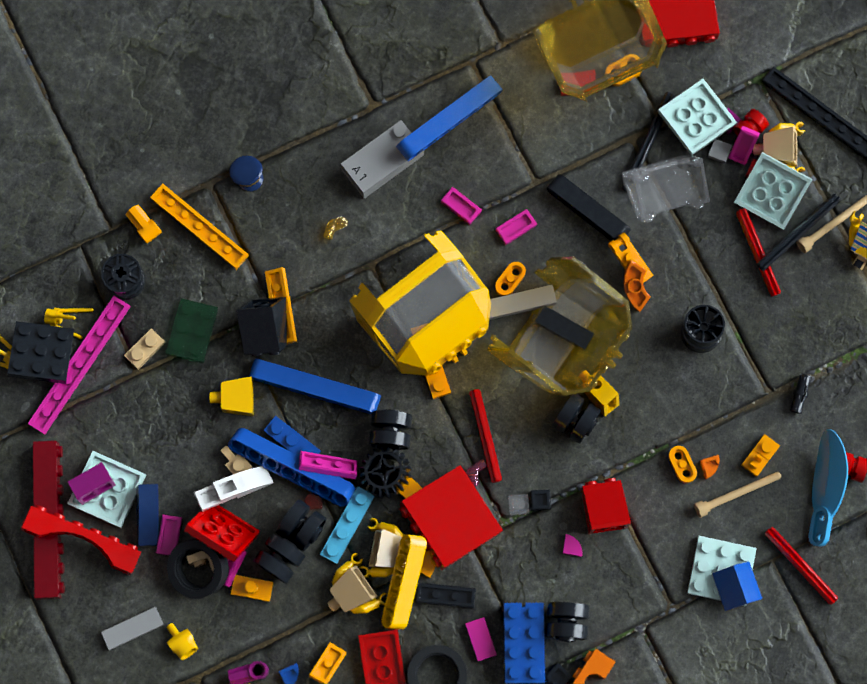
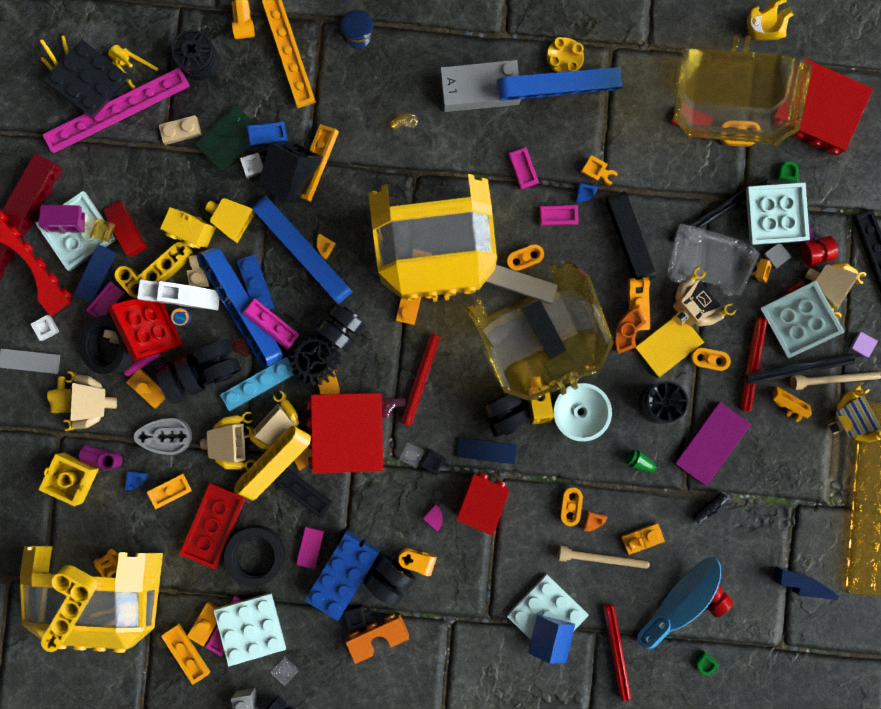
camera: 30 degrees right, 10 degrees up
(129, 590) = (44, 327): none -> white plate
(132, 472) = (102, 230): none -> clear yellow tile
(149, 461) = (125, 229): none -> red slope
(198, 477) = (156, 267): none -> yellow beam
(208, 425) = (188, 228): none -> yellow brick
(208, 630) = (87, 402): none -> tan torso
(223, 307) = (266, 133): none -> blue tile
(227, 340) = (252, 165): none -> white plate
(243, 508) = (180, 317): none -> blue tile
(288, 610) = (167, 447): none -> light grey piece
(331, 371) = (324, 246): none -> light orange tile
(438, 92) = (565, 55): none -> yellow dish
(523, 170) = (596, 169): none -> light orange plate
(526, 194) = (585, 192): none -> blue tile
(580, 460) = (486, 450): none -> dark blue slope
(584, 592) = (421, 561): none -> light orange piece
(647, 366) = (596, 413): none -> light aqua dish
(677, 279) = (668, 346): none -> yellow tile
(678, 230) = (696, 303): none -> tan torso
(685, 77) = (788, 172): none -> green tile
(716, 170) = (762, 271): none -> light orange tile
(716, 391) = (640, 462): none -> green cone
(719, 270) = (709, 359): none -> light orange plate
(743, 145) = (802, 263): dark pink tile -> none
(767, 339) = (712, 443): none -> magenta tile
(801, 265) = (794, 404): none -> light orange plate
(838, 181) = (863, 344): none -> lavender tile

